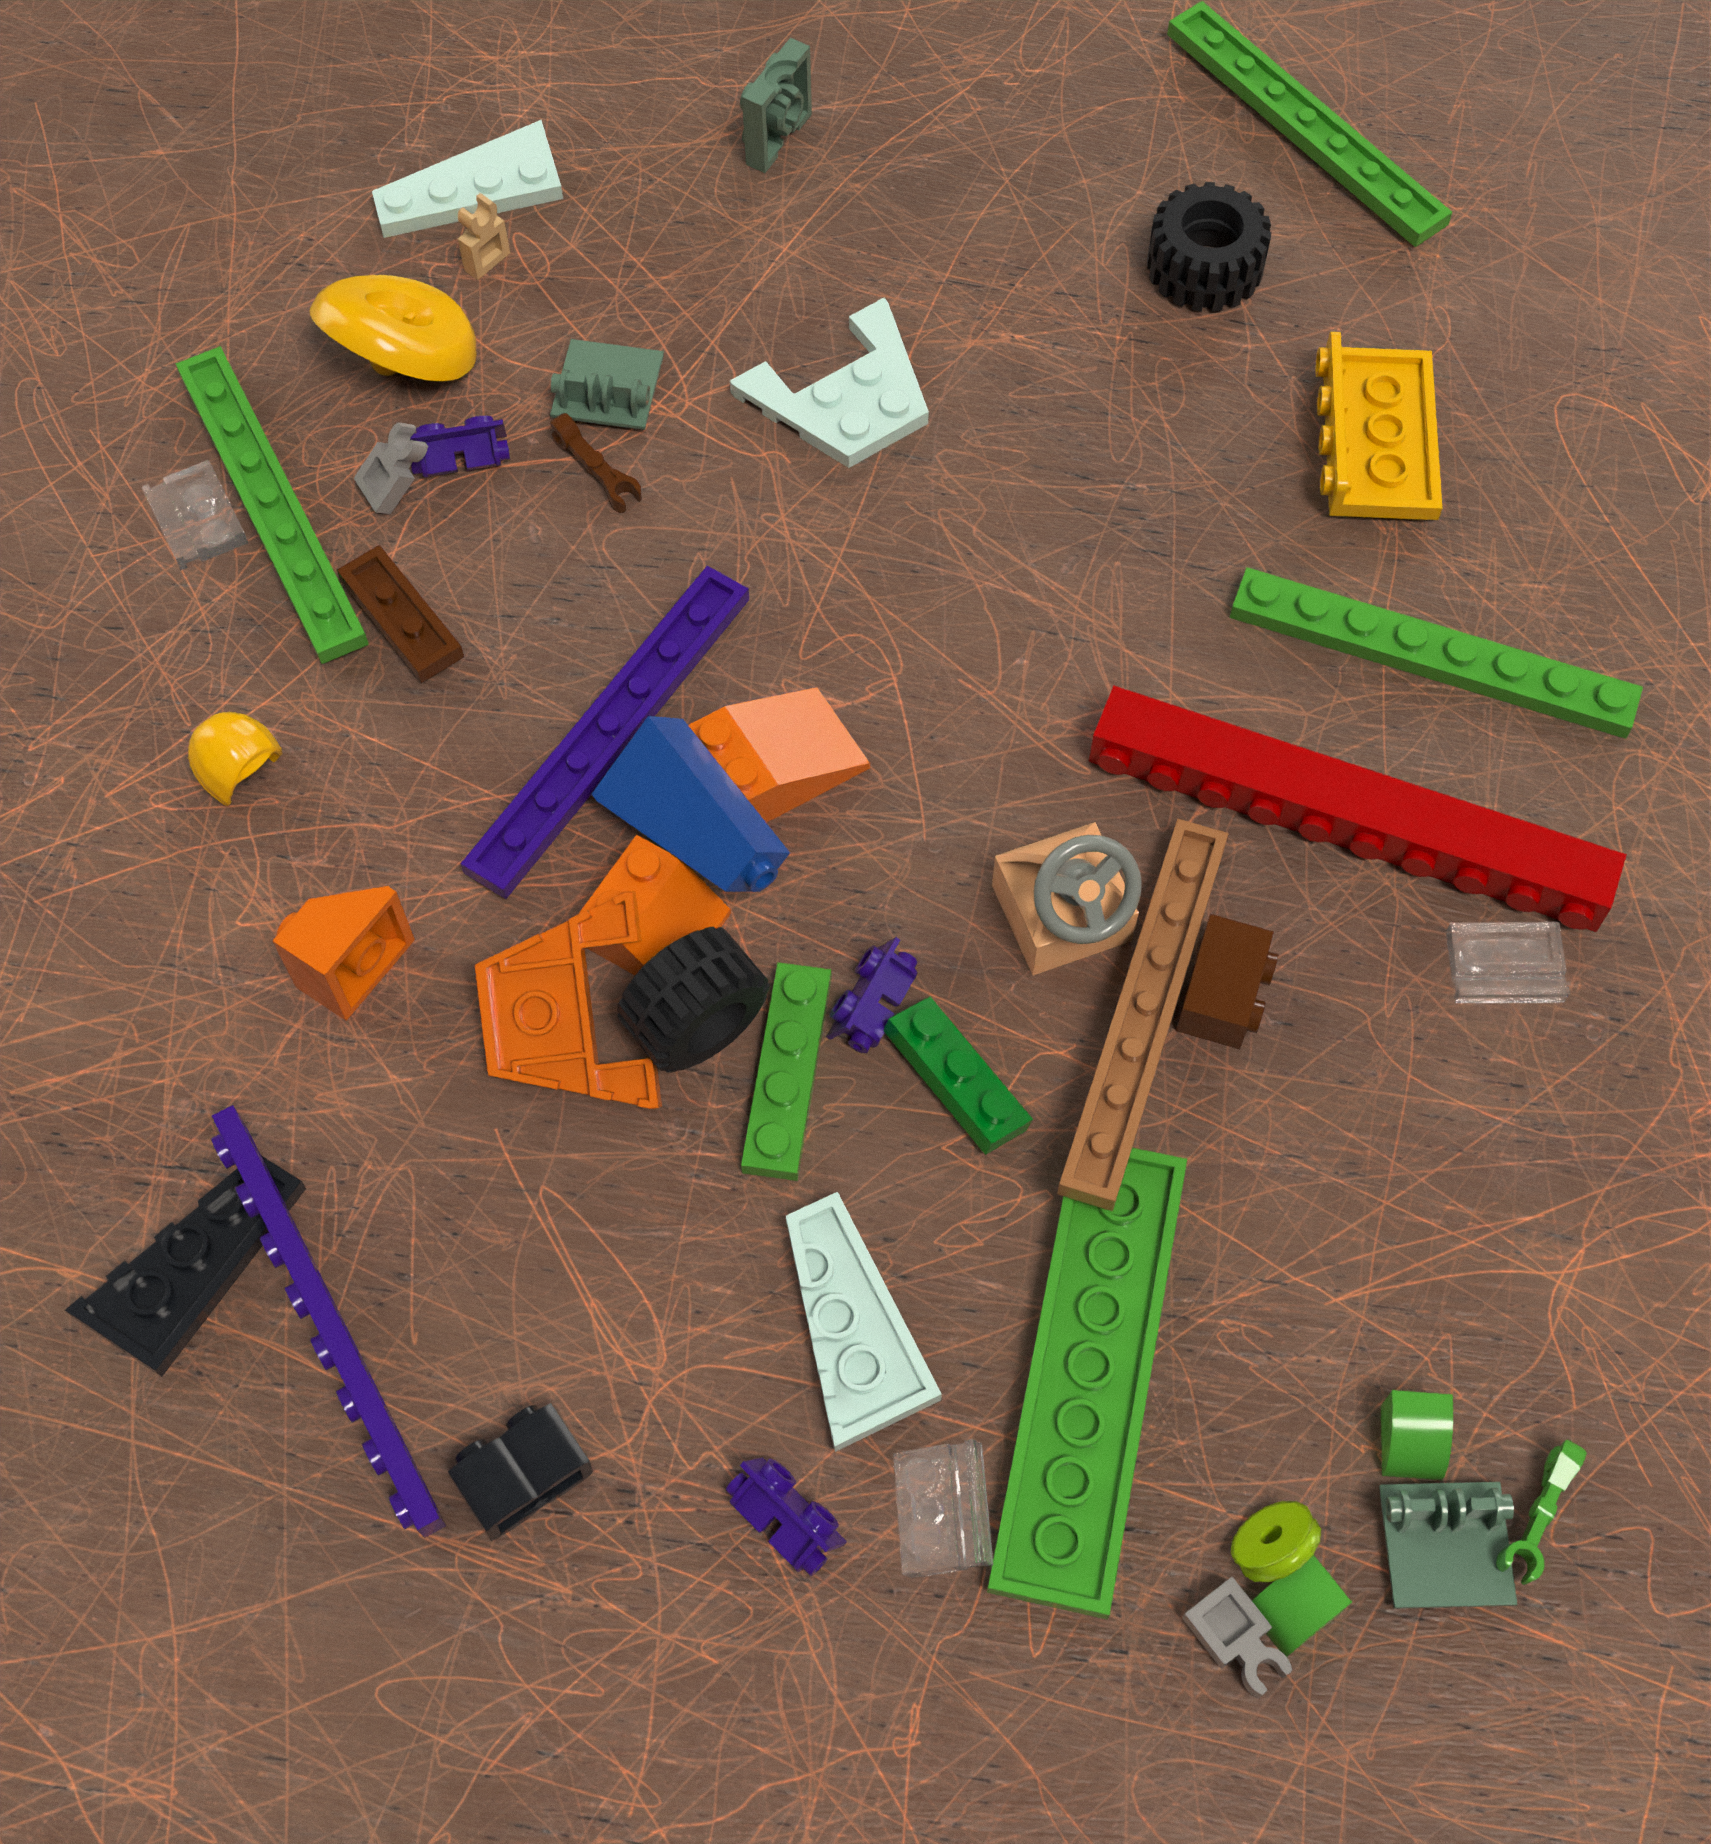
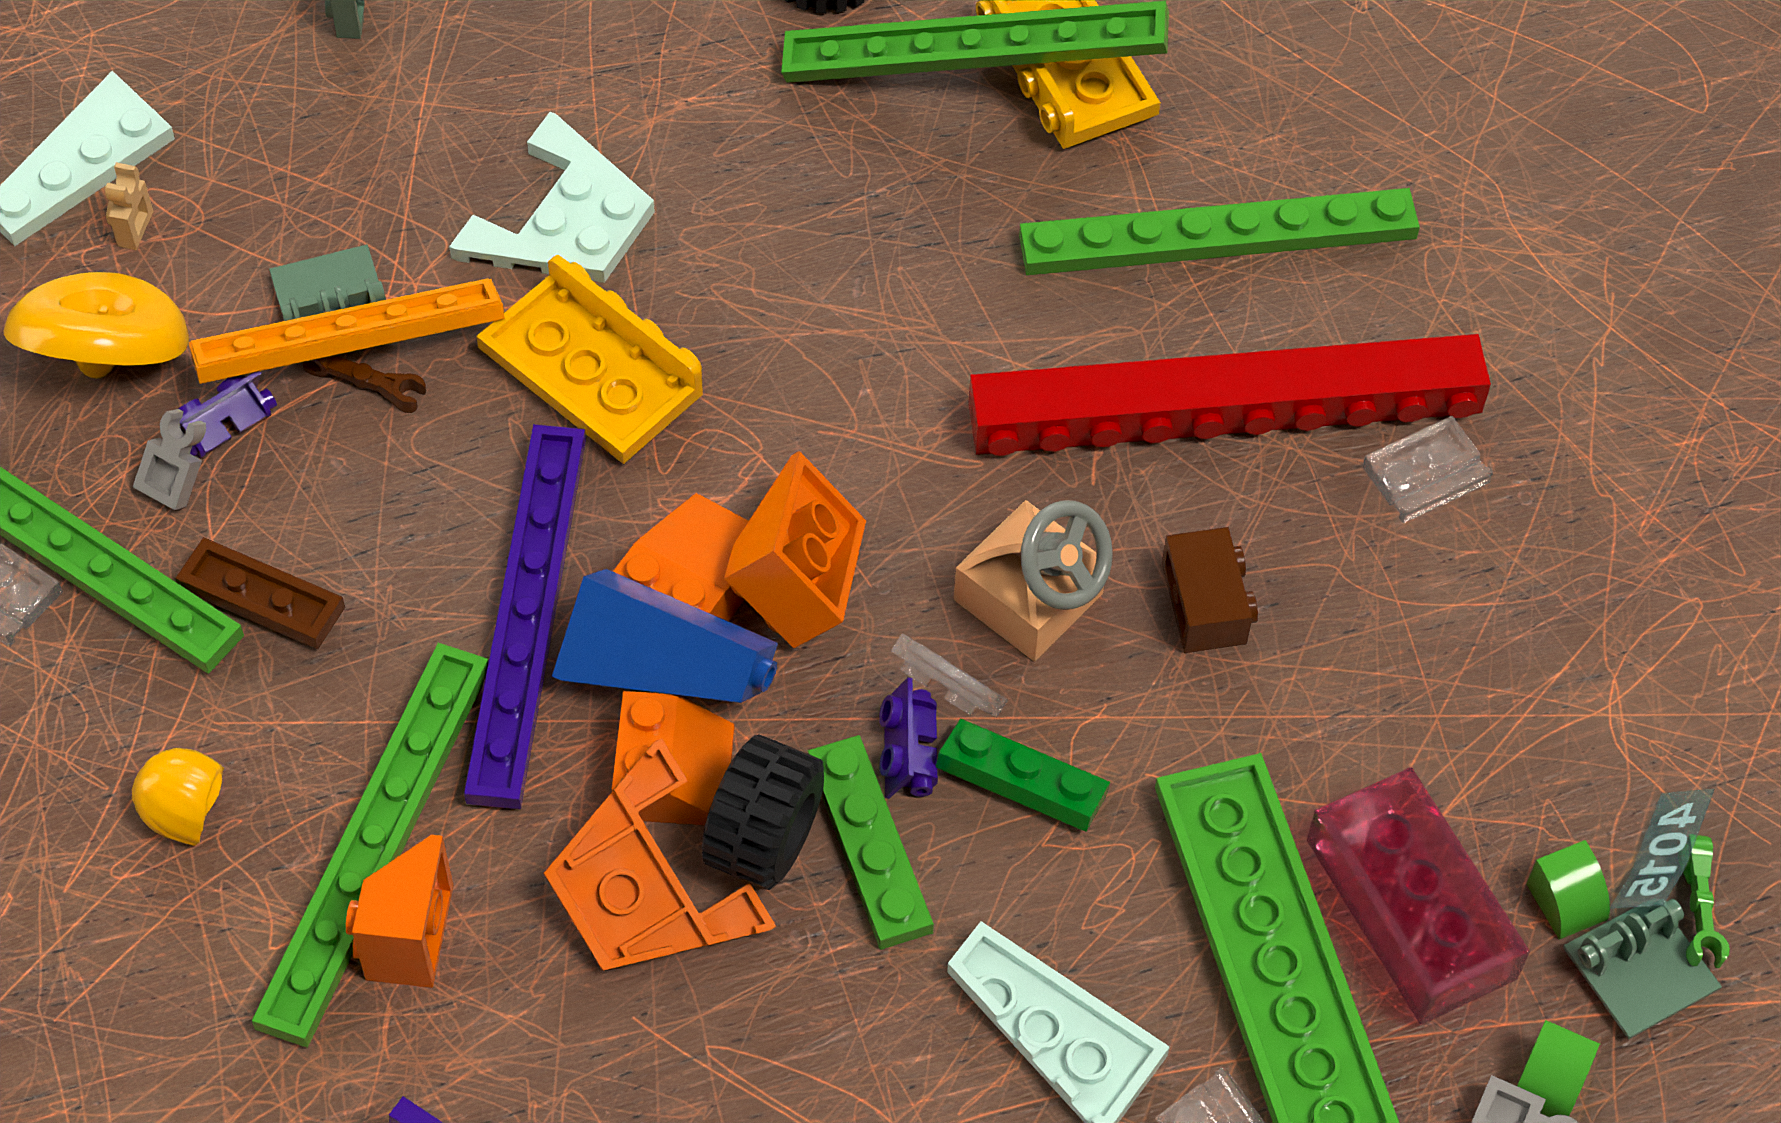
camera: 30 degrees left, 5 degrees down
(373, 861) = (371, 840): none -> bright green plate
(595, 416) = (345, 330): none -> light orange tile
(793, 532) = (594, 360): none -> yellow bracket
(865, 779) = (798, 554): none -> orange slope
(944, 968) = (964, 690): none -> clear plate
(1142, 1017) = (1158, 650): medium nougat plate -> none
(1257, 1367) = (1417, 895): none -> clear pink brick
(1276, 1541) = (1507, 1047): lime piece -> none
(1297, 383) = (976, 41): none -> bright green plate
(1533, 1441) = (1665, 848): none -> clear light blue sticker

